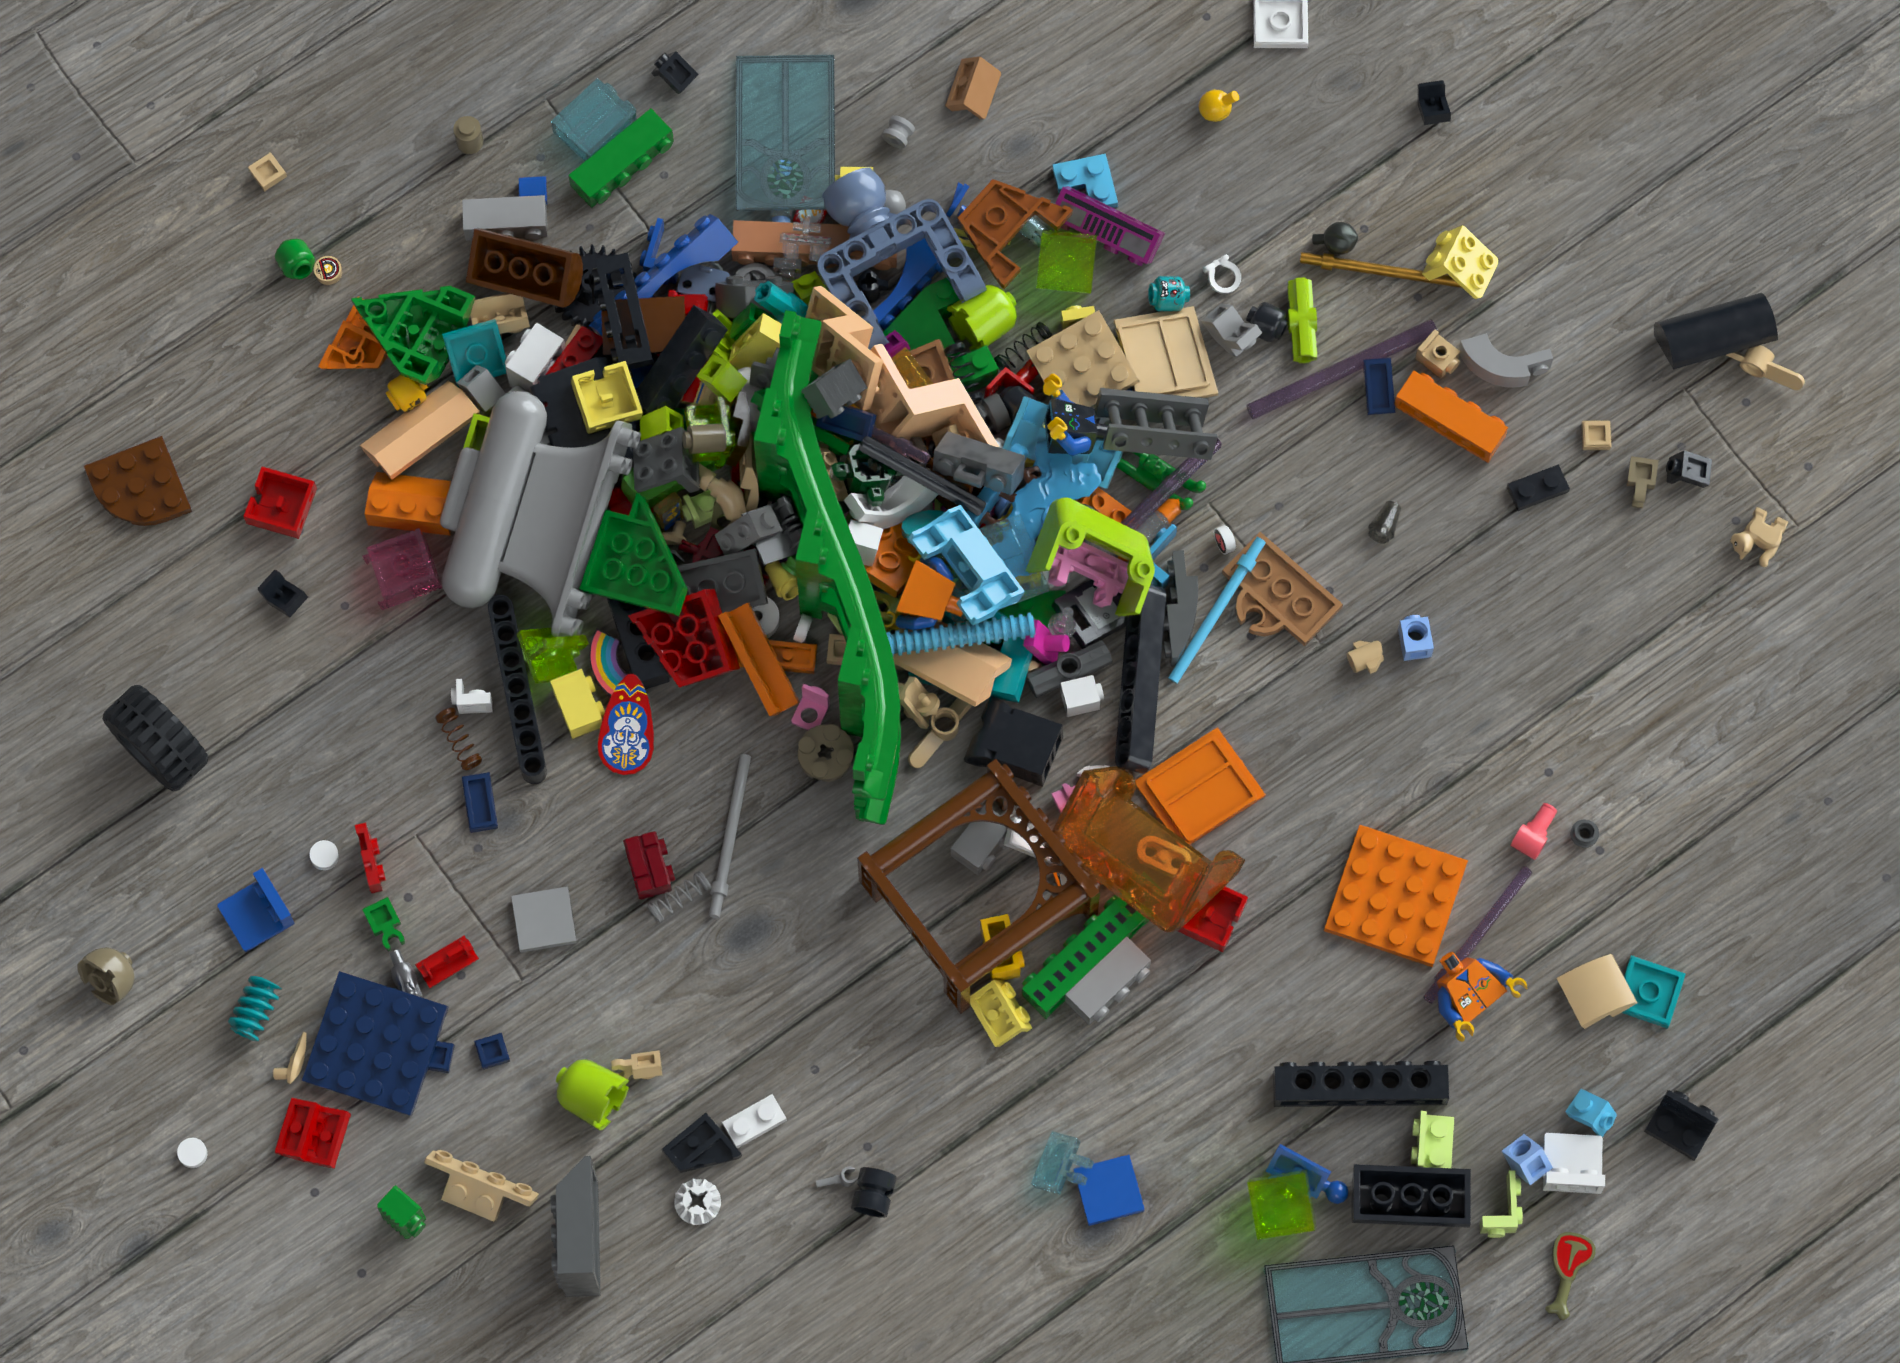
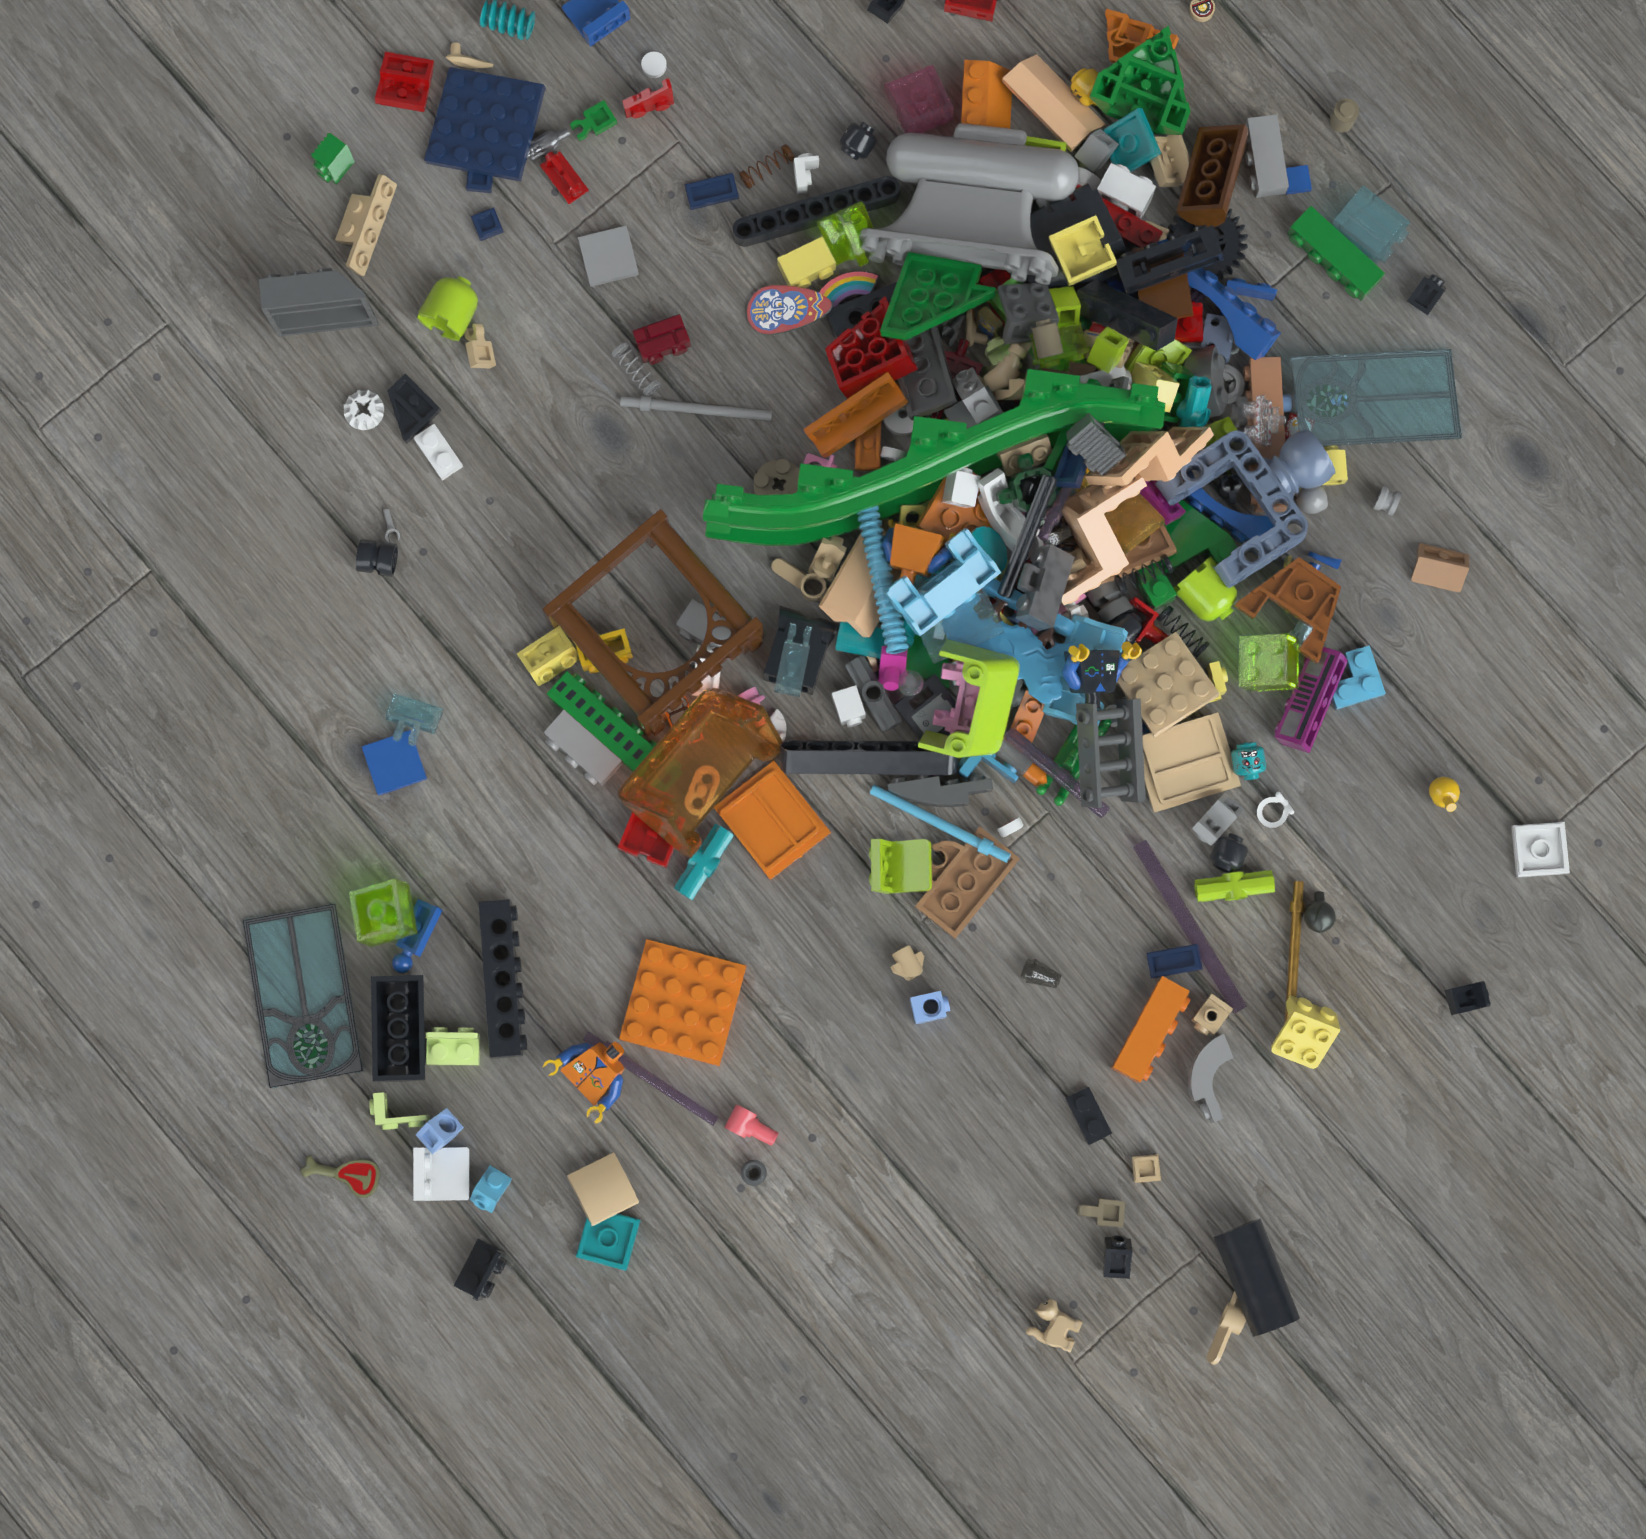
camera: 85 degrees right, 10 degrees up
(441, 638) = (858, 140): none -> black head
(1033, 740) = (793, 663): none -> clear light blue hinge
(1254, 868) = (704, 862): none -> teal piece
(1261, 651) = (900, 866): none -> lime bracket

